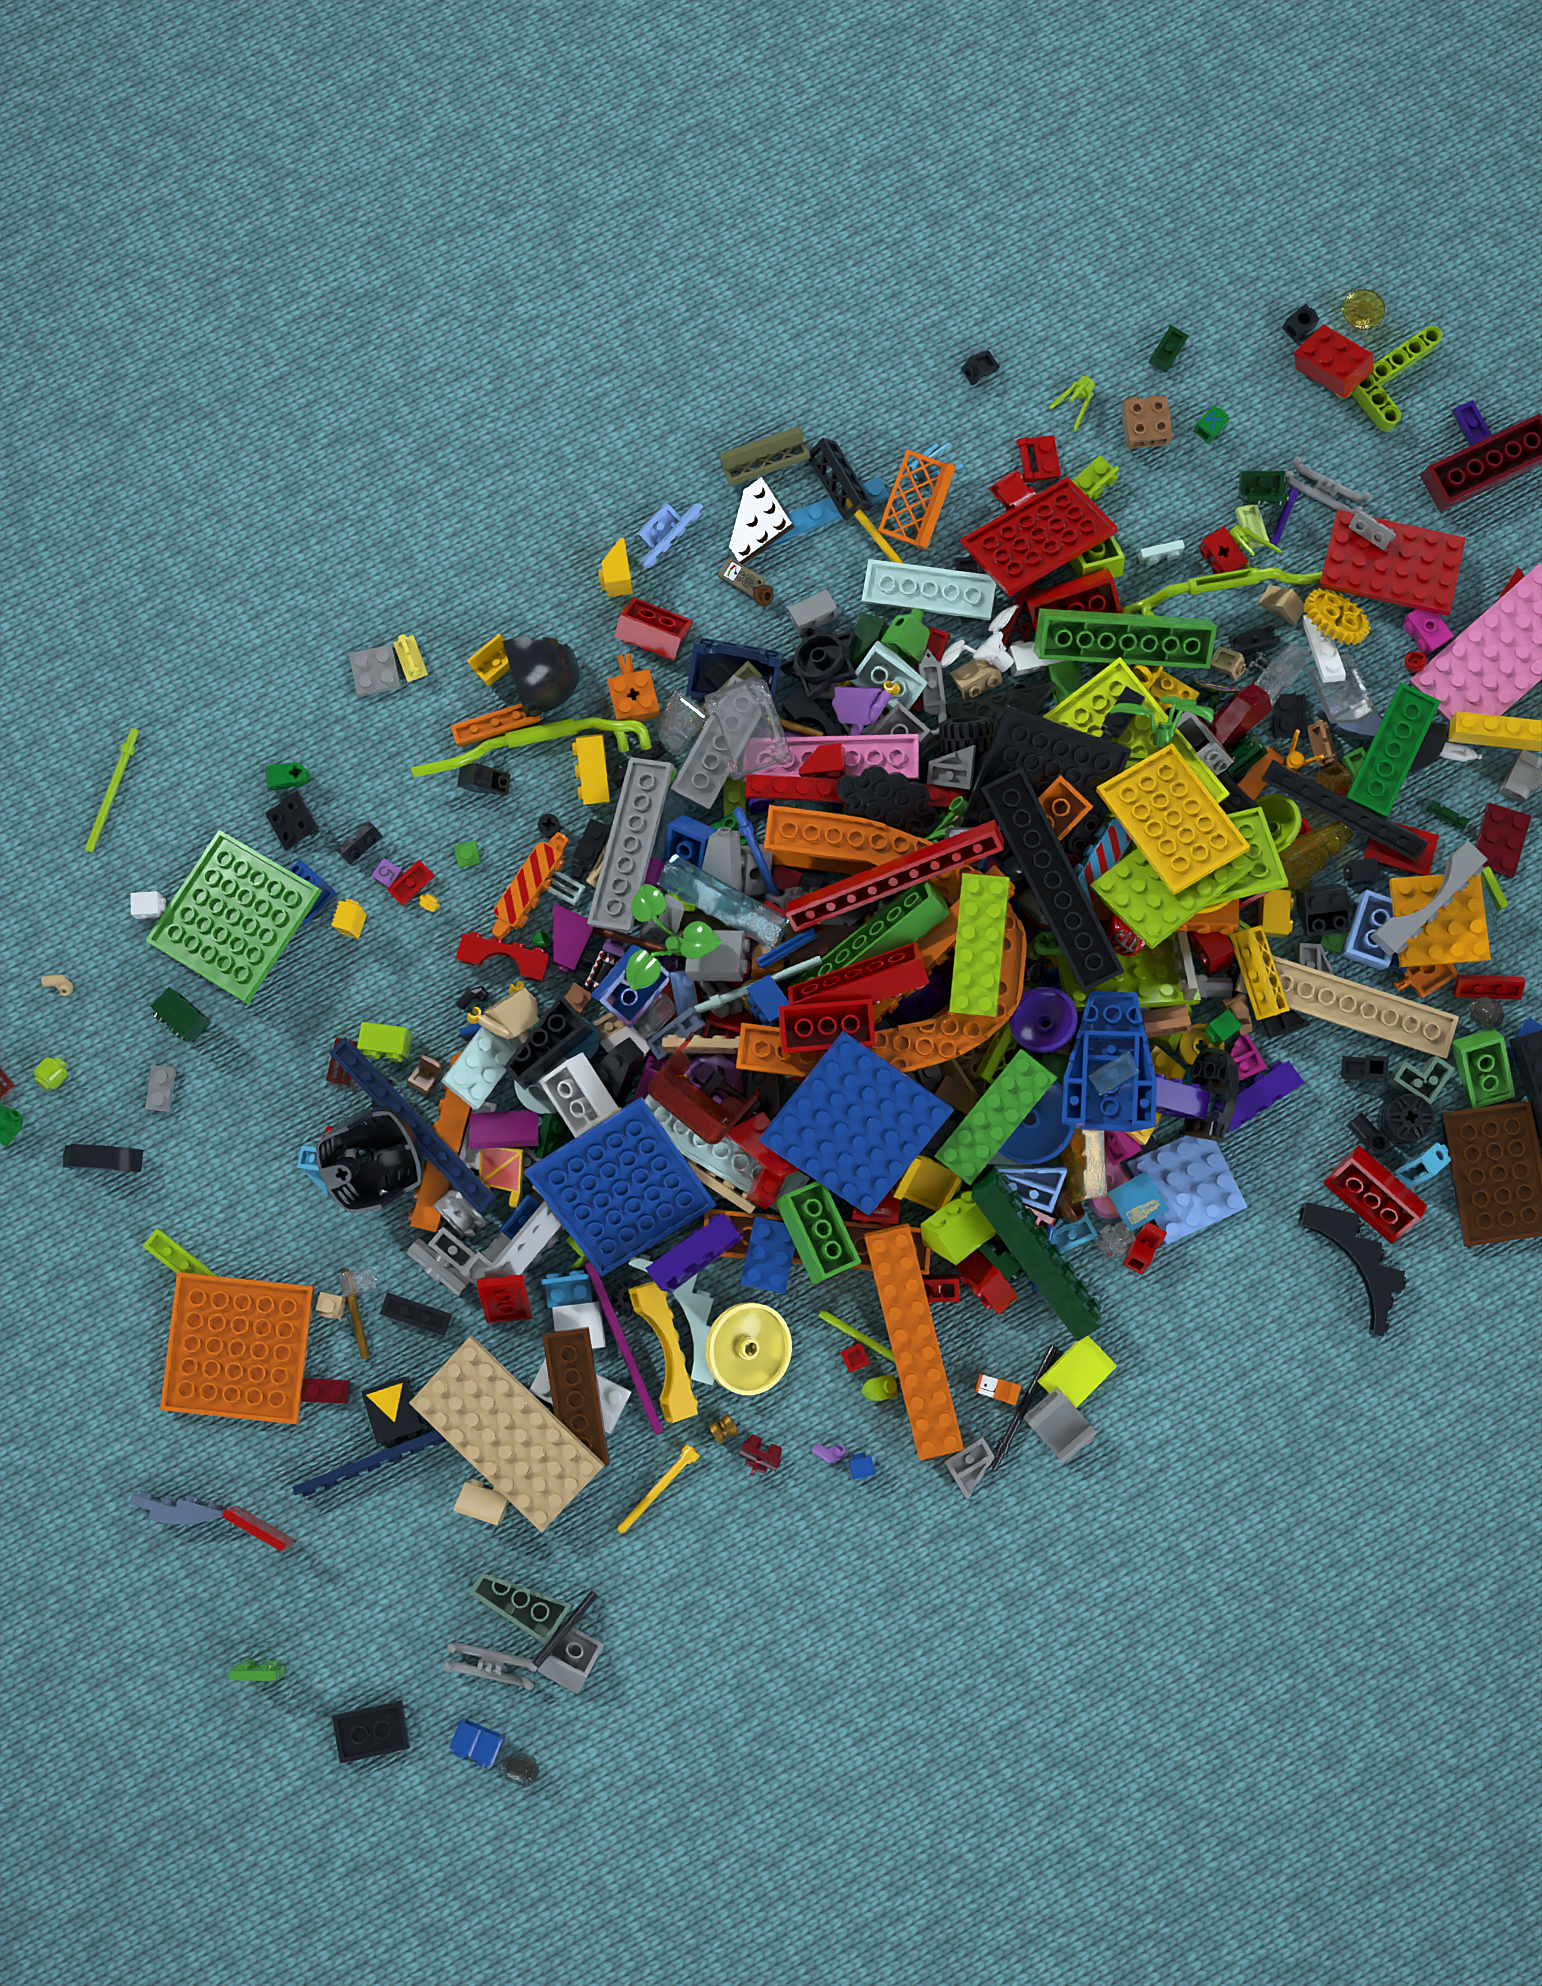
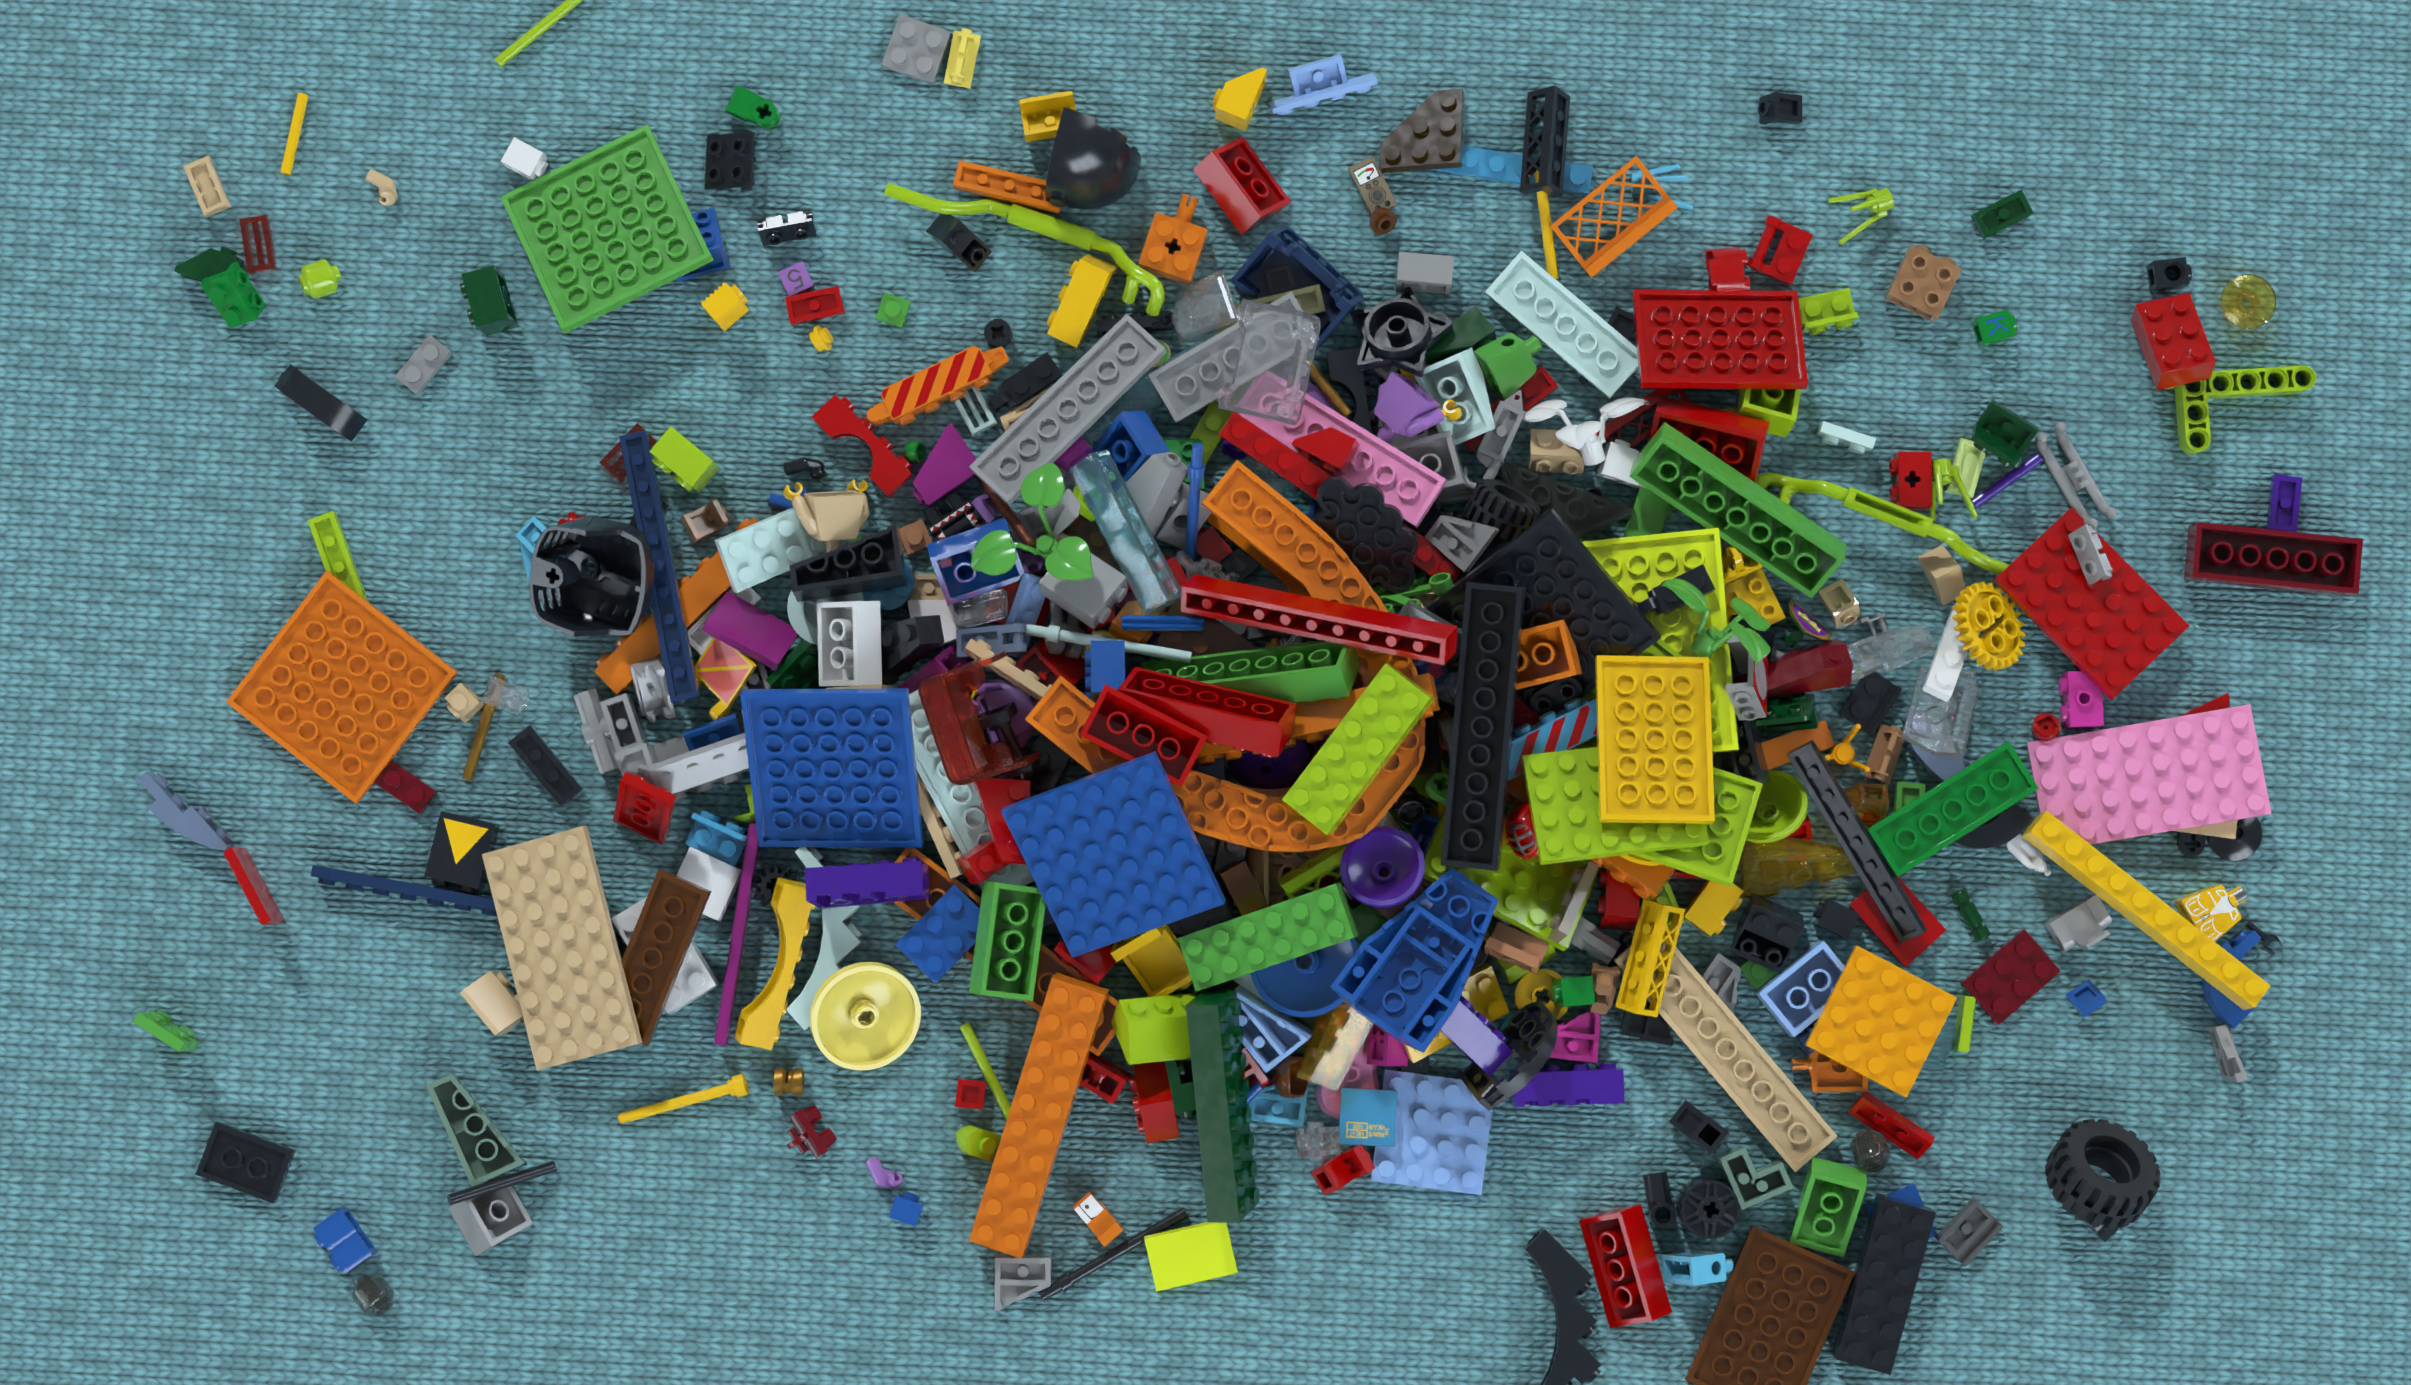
camera: 35 degrees right, 5 degrees up
(490, 1665) = (405, 1171): light grey piece -> none
(762, 452) = (1481, 61): olive fence -> none
(1060, 1425) = (1139, 1296): light grey panel -> none
(1114, 1072) = (1419, 969): clear light blue slope -> none
(1254, 640) = (1884, 596): black hinge -> none
(1459, 868) = (1936, 980): light grey arch -> none

